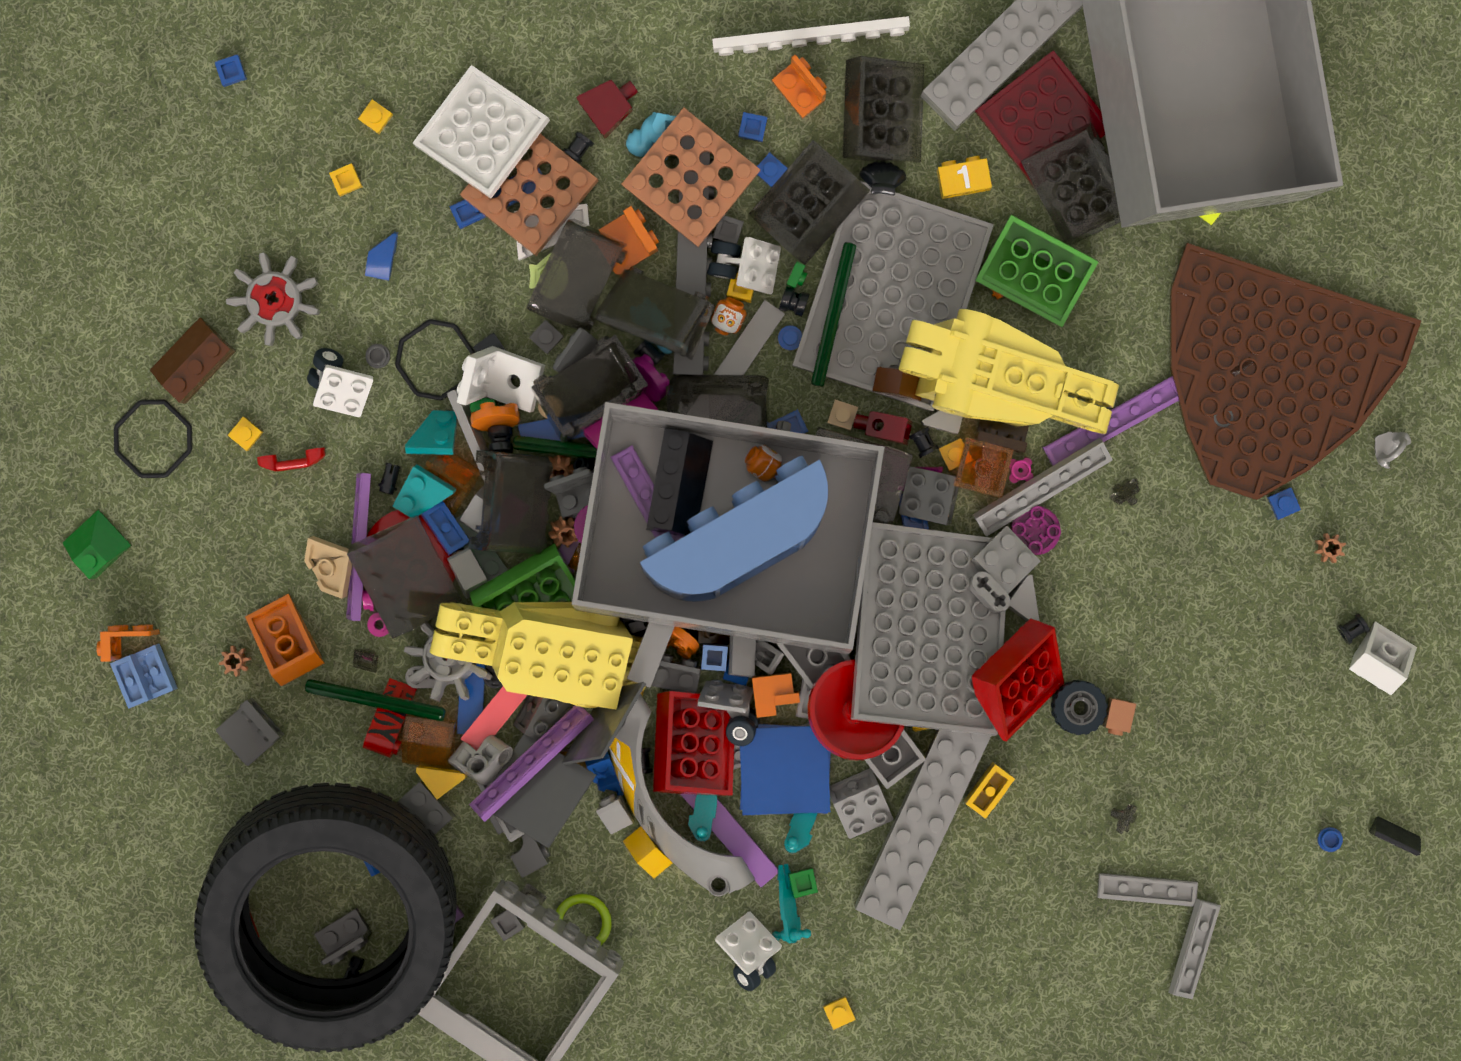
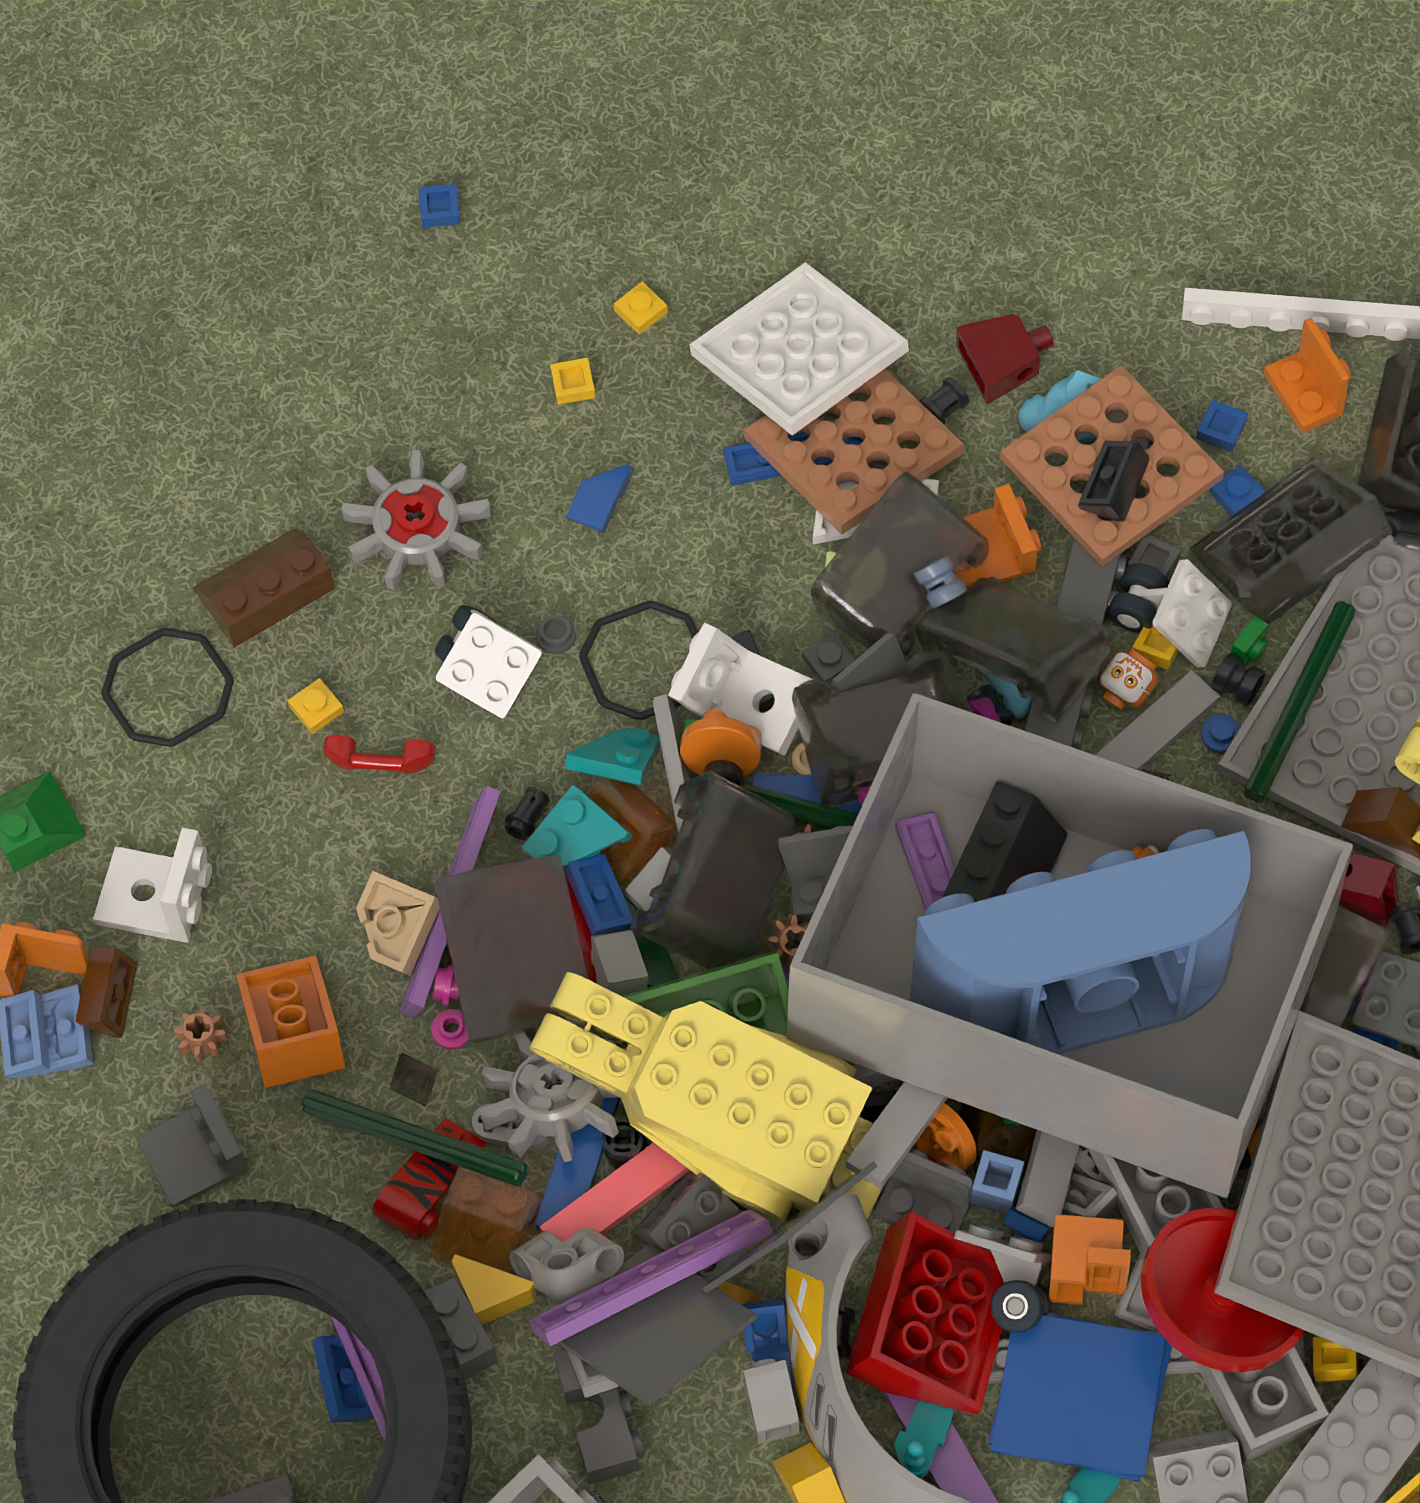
camera: 20 degrees right, 25 degrees down
(172, 645) = (106, 991): none -> reddish brown slope
(196, 572) = (176, 884): none -> white bracket
(603, 287) = (936, 572): none -> sand blue wheel
(695, 193) = (1115, 479): none -> black slope

